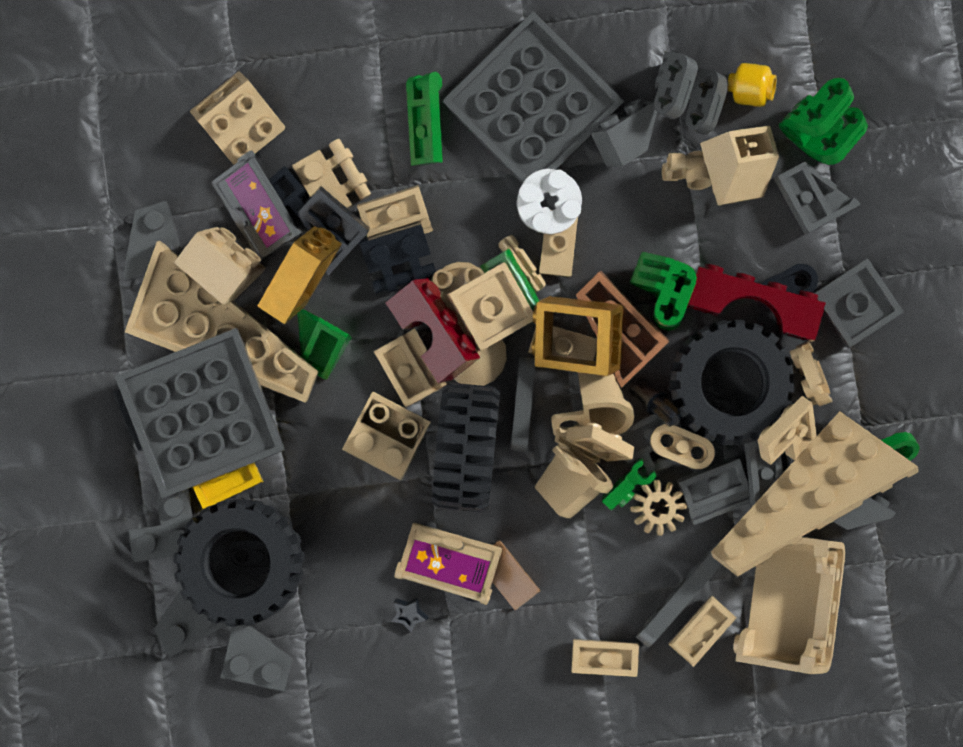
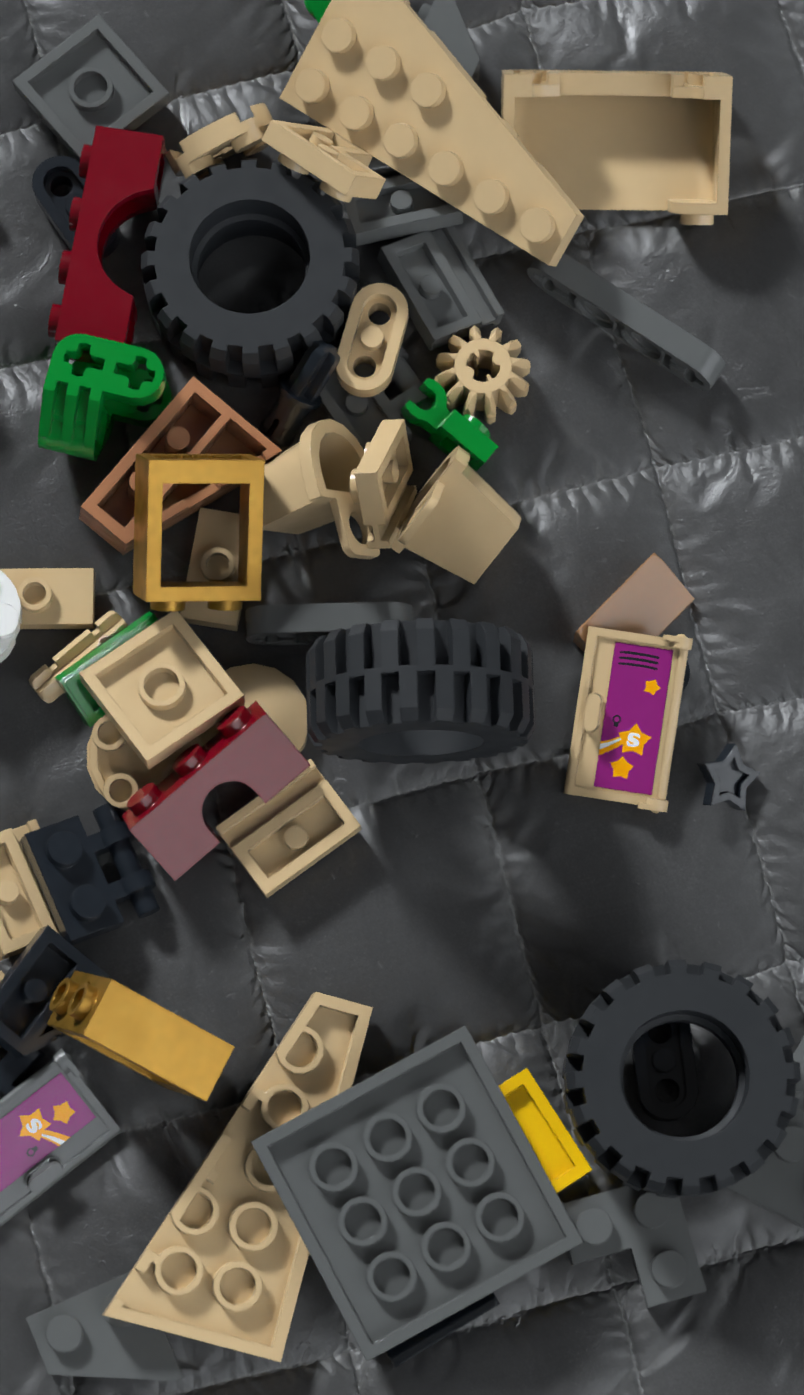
camera: 100 degrees left, 10 degrees down
(220, 263) = (135, 1191): tan slope -> none
(320, 342) = (259, 993): green slope -> none
(386, 436) = (416, 850): tan slope -> none
(605, 657) = (754, 435): tan plate -> none
(702, 630) = (683, 281): tan plate -> none

